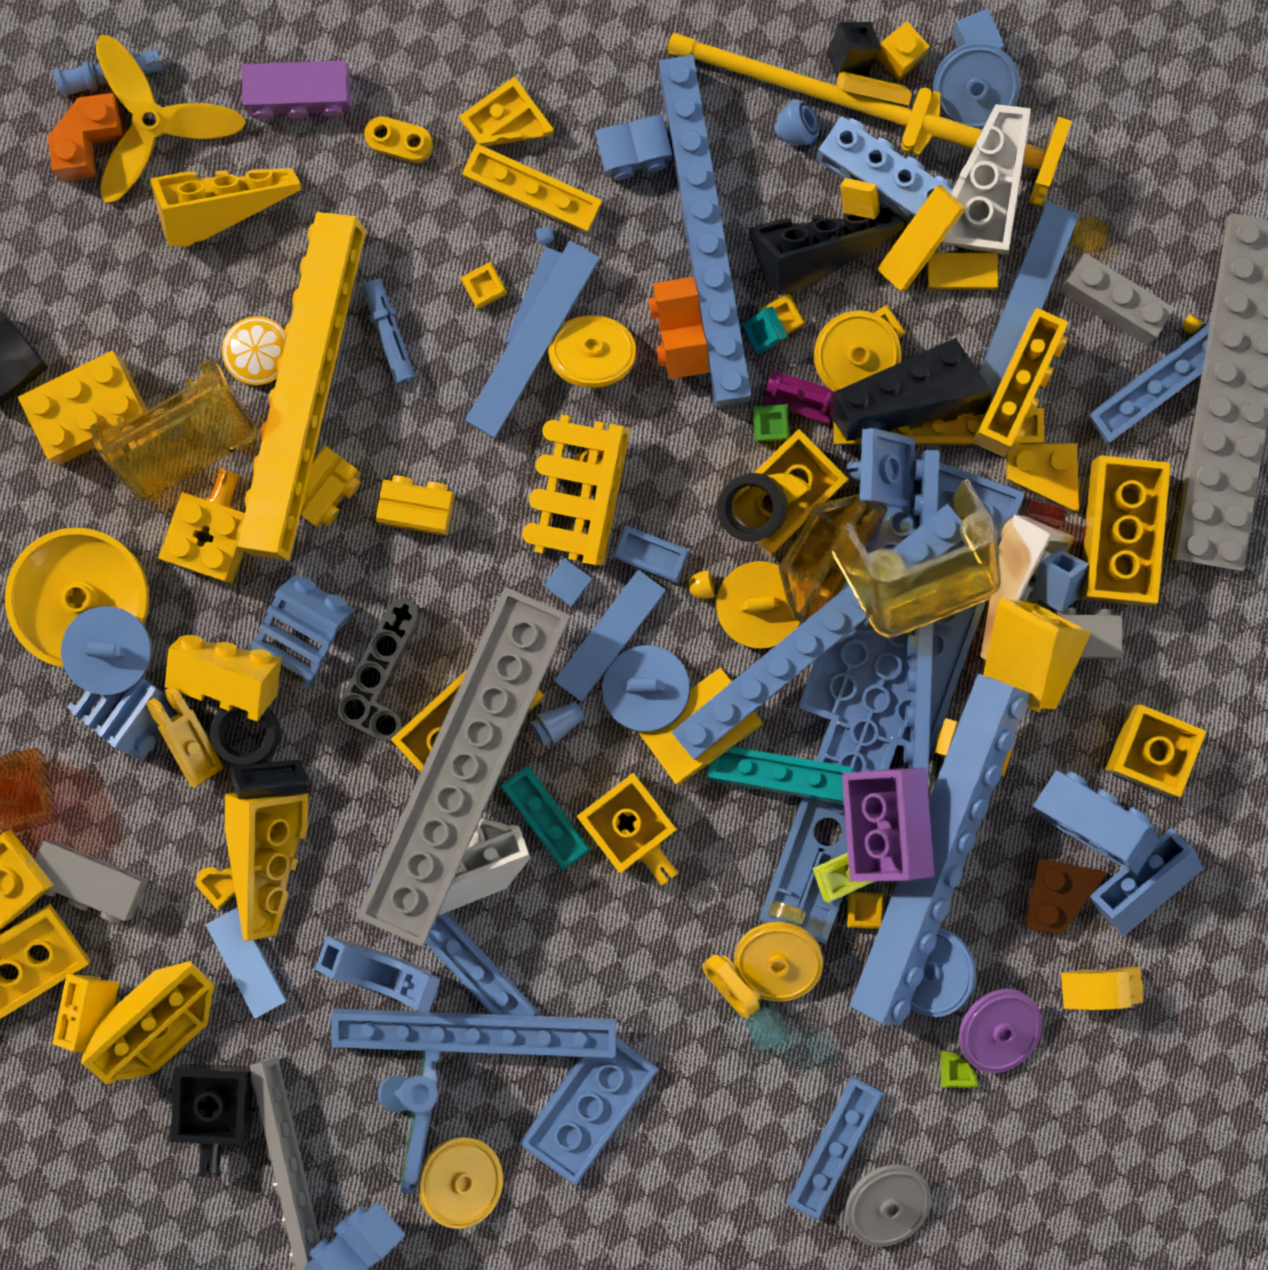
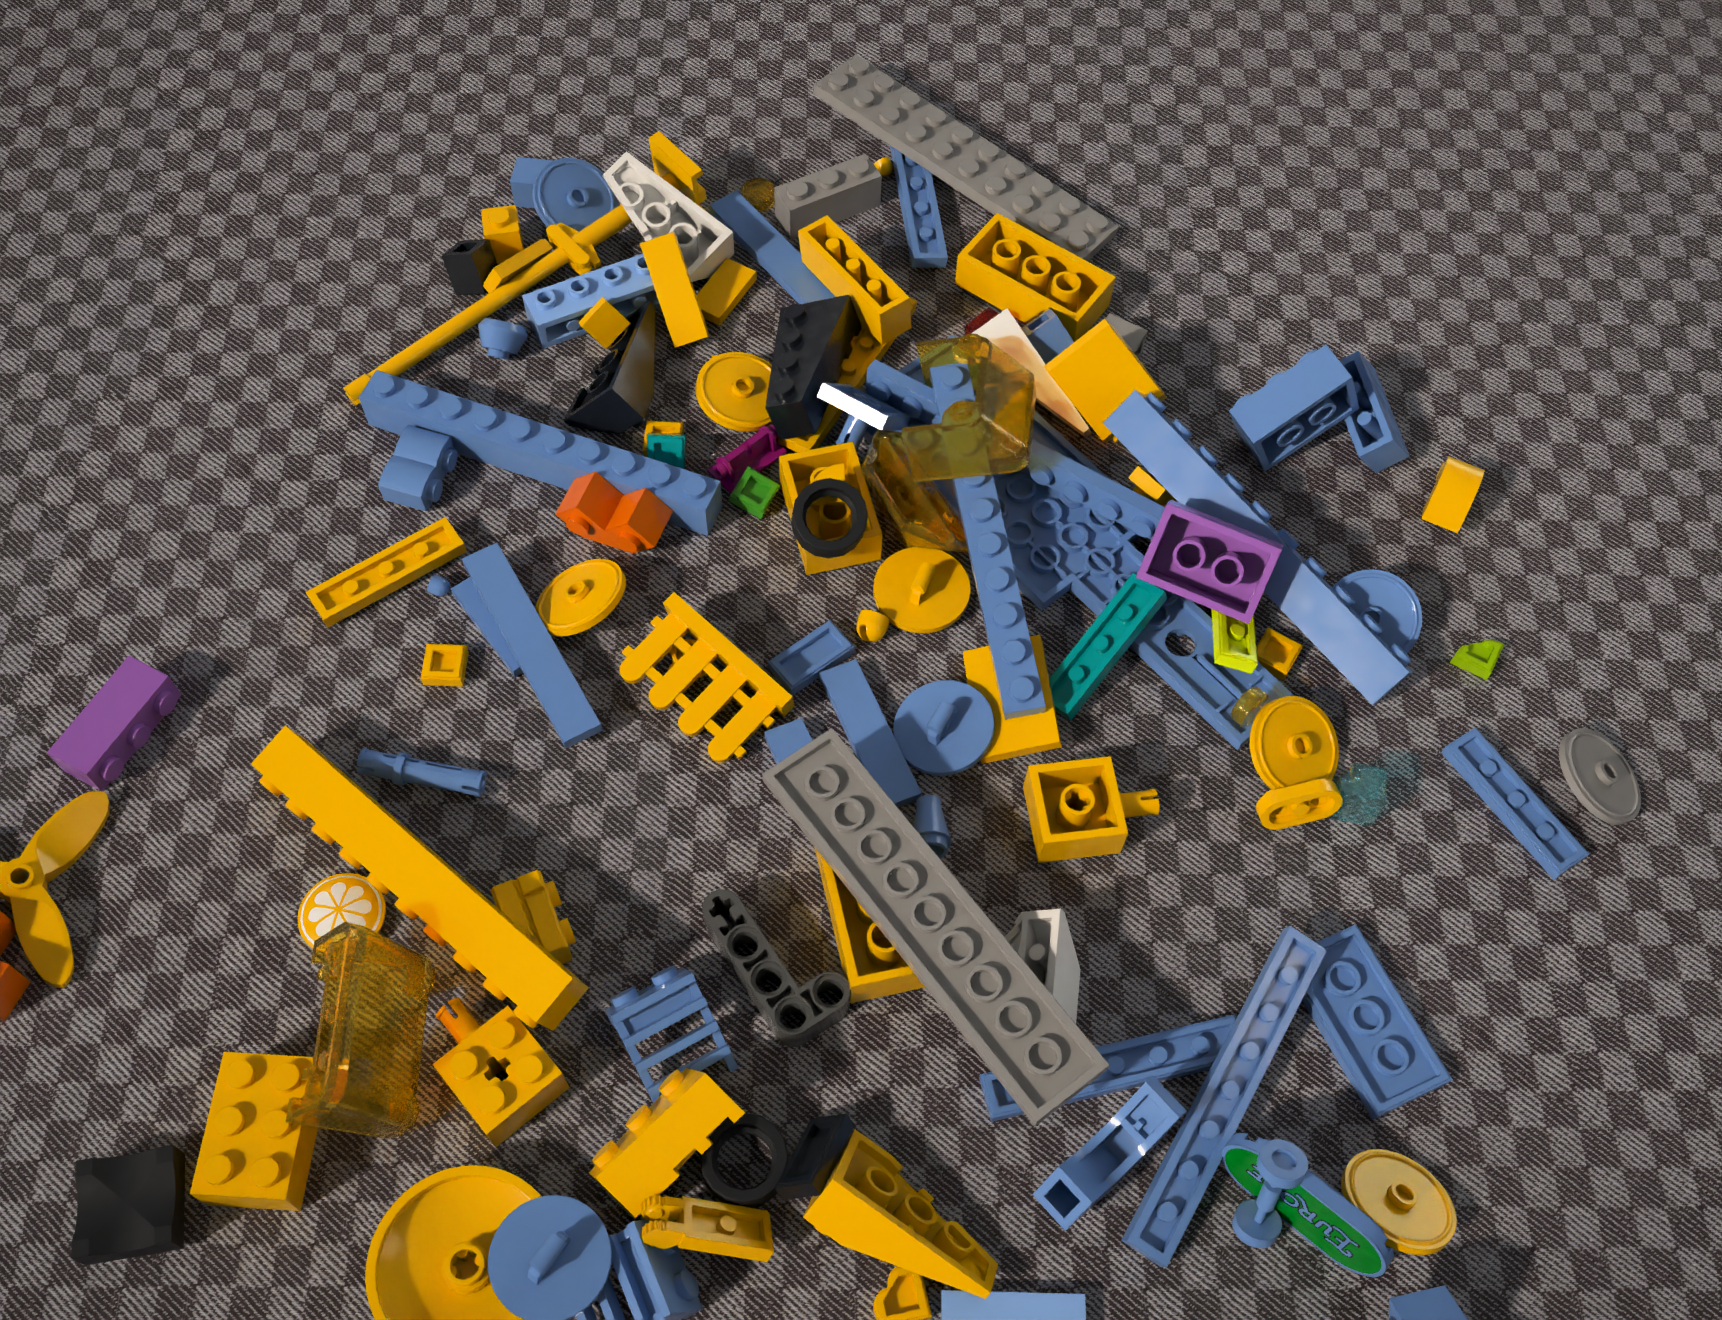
camera: 65 degrees left, 25 degrees down
(202, 207) = (154, 886): yellow wedge -> none
(397, 139) = (245, 664): yellow plate -> none
(415, 506) = (617, 841): yellow brick -> none
(505, 117) = (303, 557): yellow wing -> none
(545, 818) = (1009, 895): teal tile -> none
(1000, 1030) = (1456, 593): medium lavender shield -> none
(1046, 471) = (940, 315): yellow wing -> none
(1059, 894) = (1341, 492): reddish brown wing -> none
(1155, 750) = (1246, 348): yellow brick -> none

